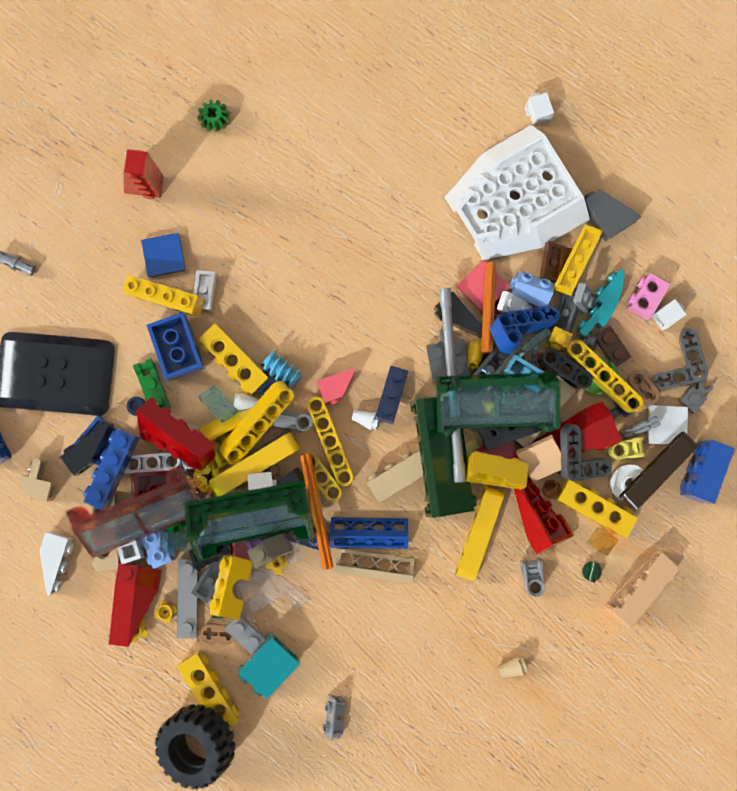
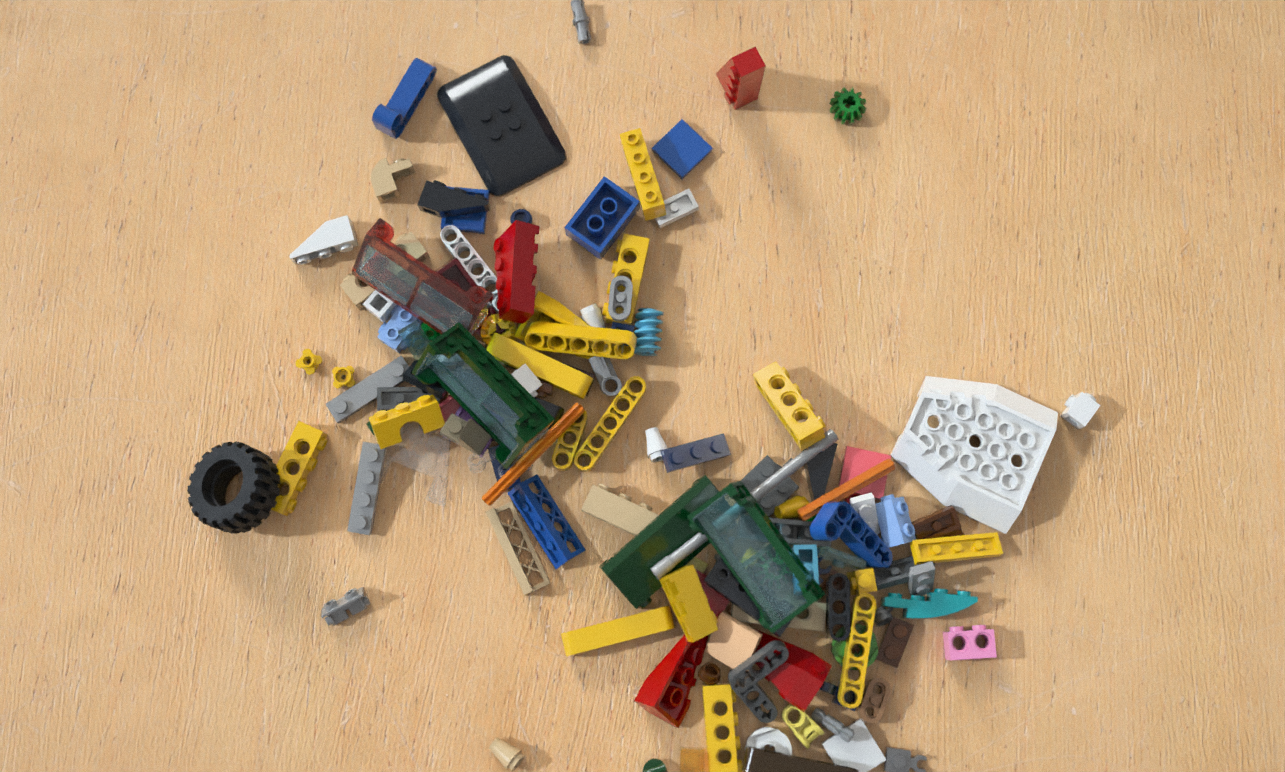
camera: 55 degrees right, 5 degrees down
(111, 469) = (446, 234): blue brick -> none
(132, 597) = (337, 336): red wedge -> none
(151, 383) = (552, 219): green plate -> none
(215, 638) = (349, 442): medium nougat beam -> none
(218, 404) = (574, 293): clear light blue plate -> none
(245, 374) = (620, 299): none -> light grey plate
(268, 666) = (354, 509): teal panel -> none
(277, 568) = (454, 456): yellow plate -> none
(335, 386) = (667, 394): coral slope -> none
(430, 311) = (803, 433): none -> yellow brick
(533, 575) = (611, 711): light grey piece -> none
(609, 214) = (1024, 549): dark grey slope -> none
(669, 314) = (966, 678): white brick -> none
(687, 371) = (922, 735): dark grey beam -> none

